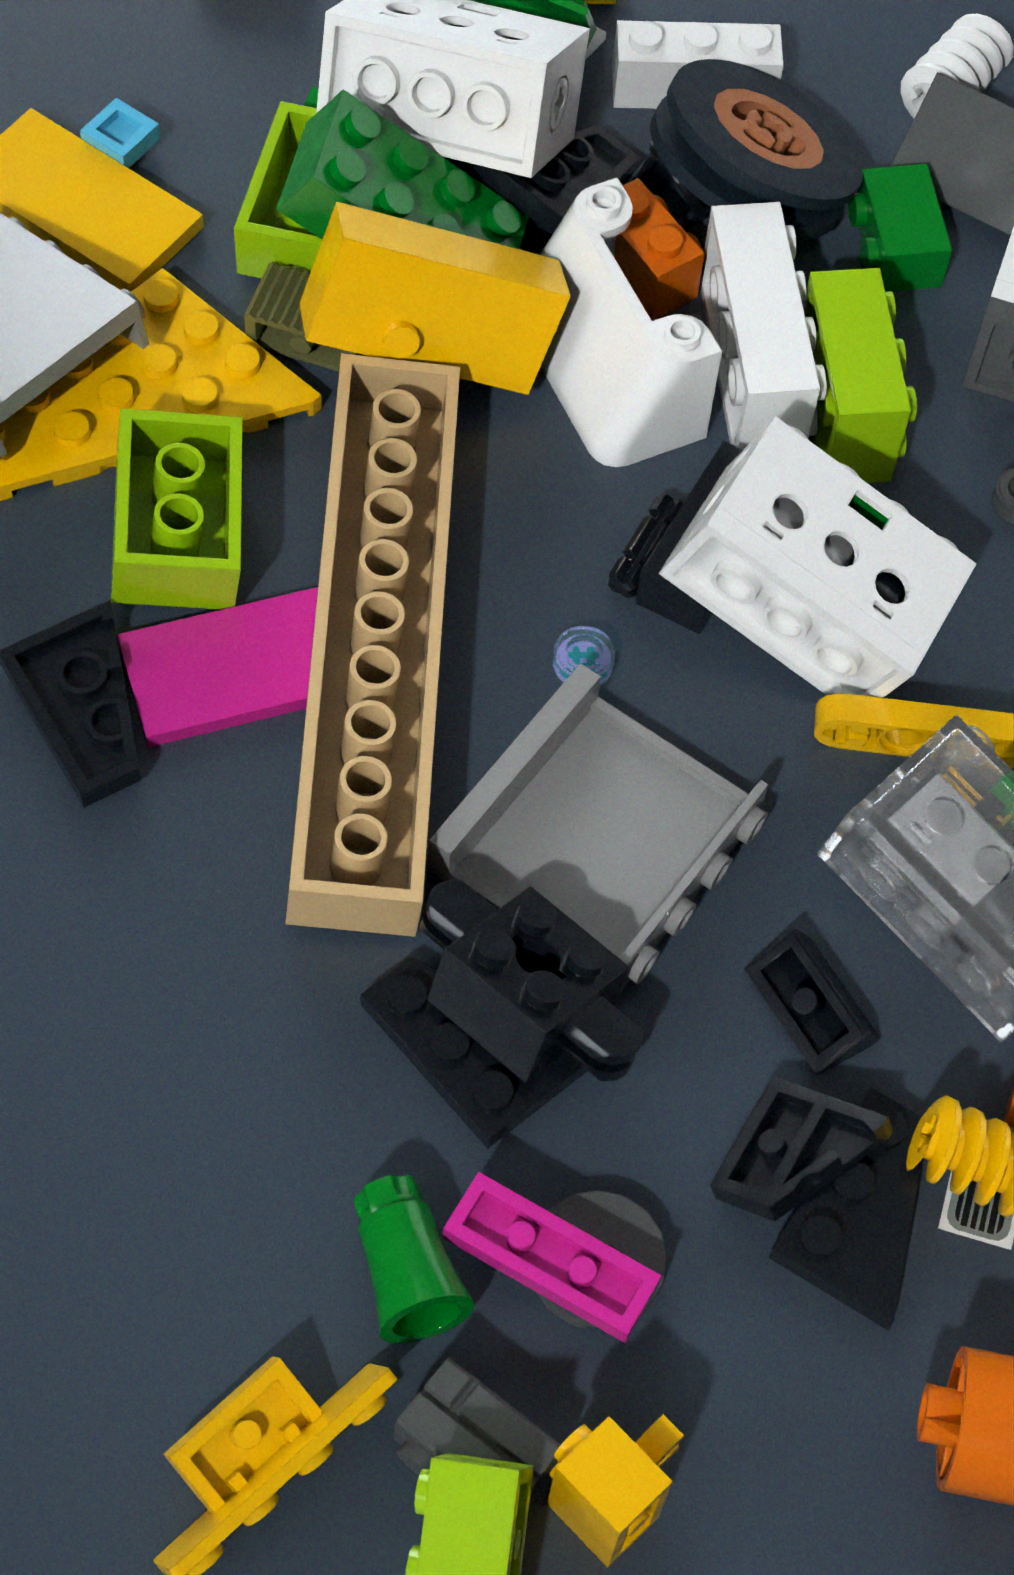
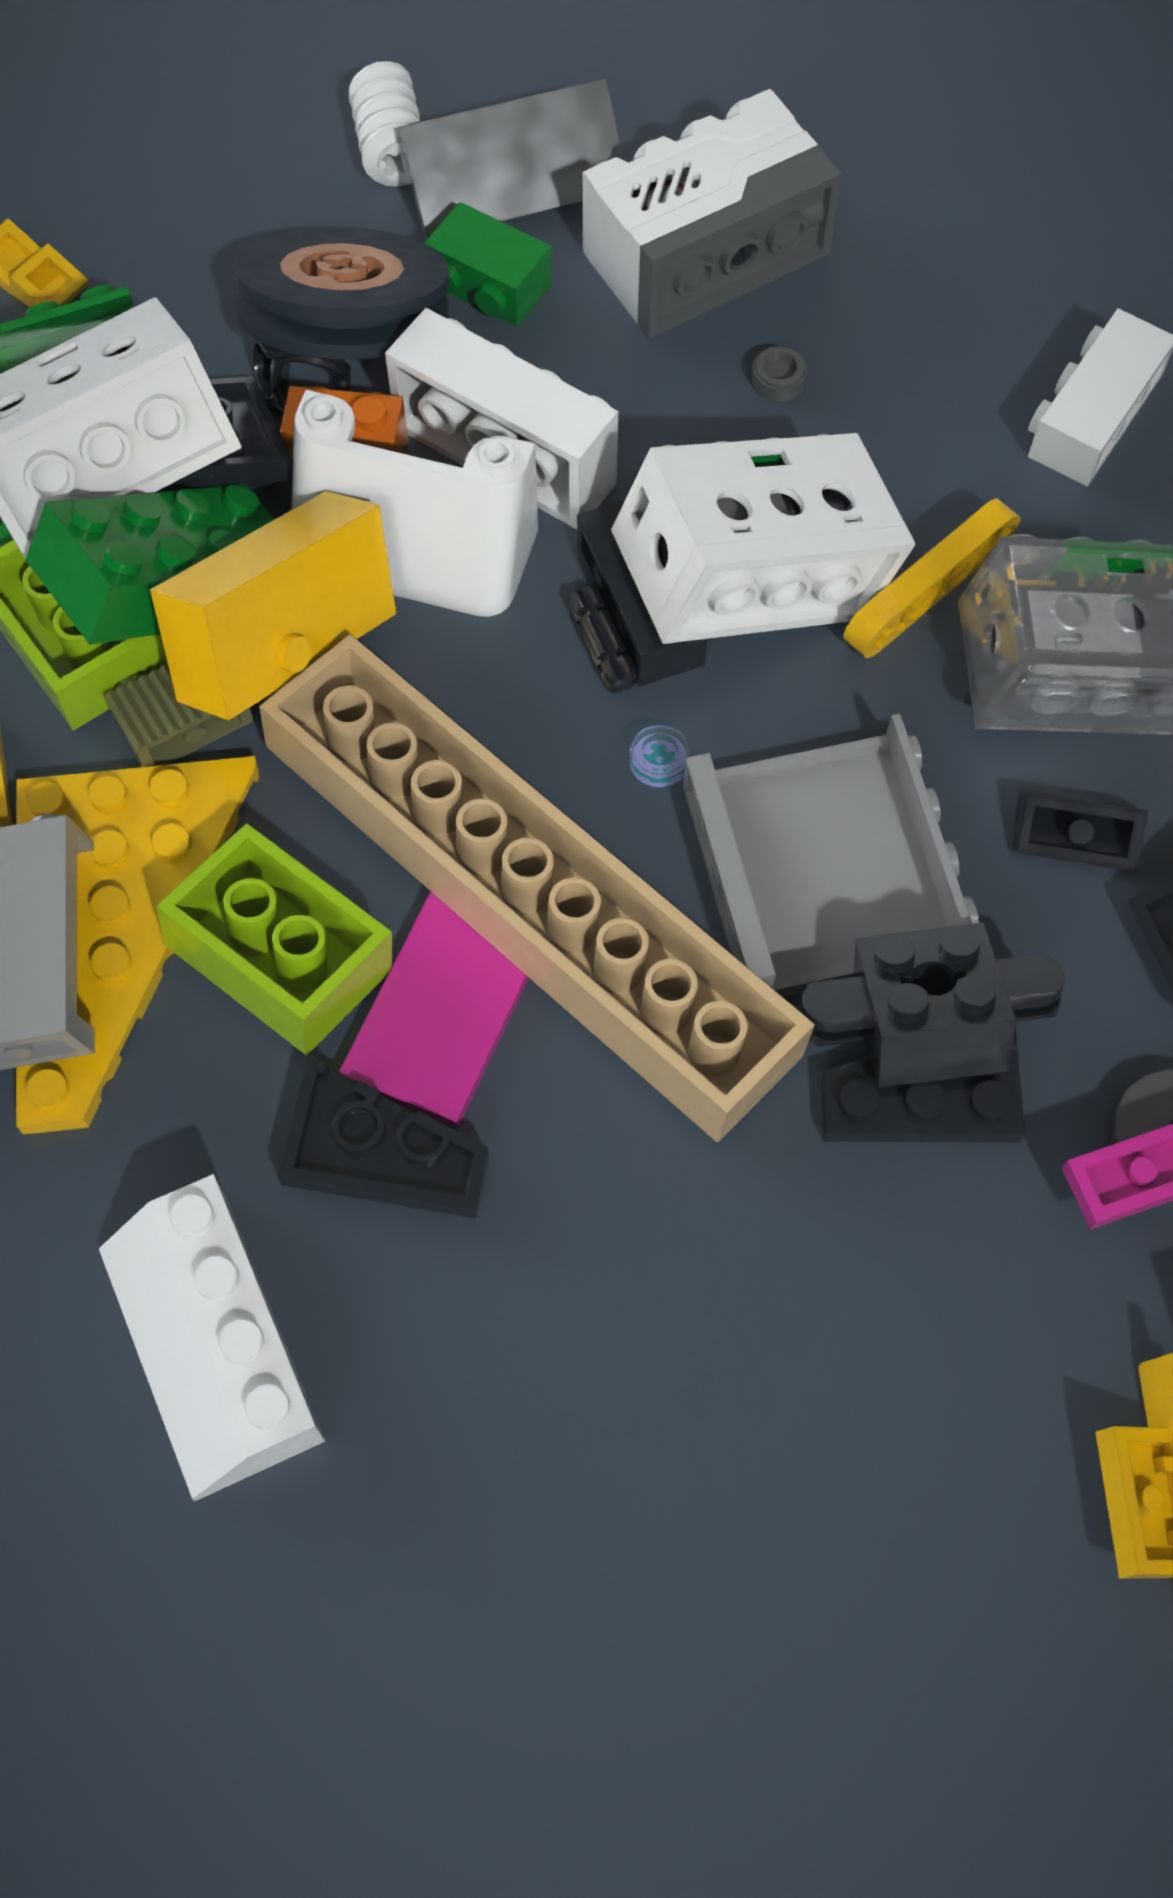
camera: 45 degrees left, 5 degrees up
(408, 1262) = (1089, 1269): green plant -> none
(653, 52) = (198, 275): white brick -> none
(864, 368) = (607, 362): lime brick -> none

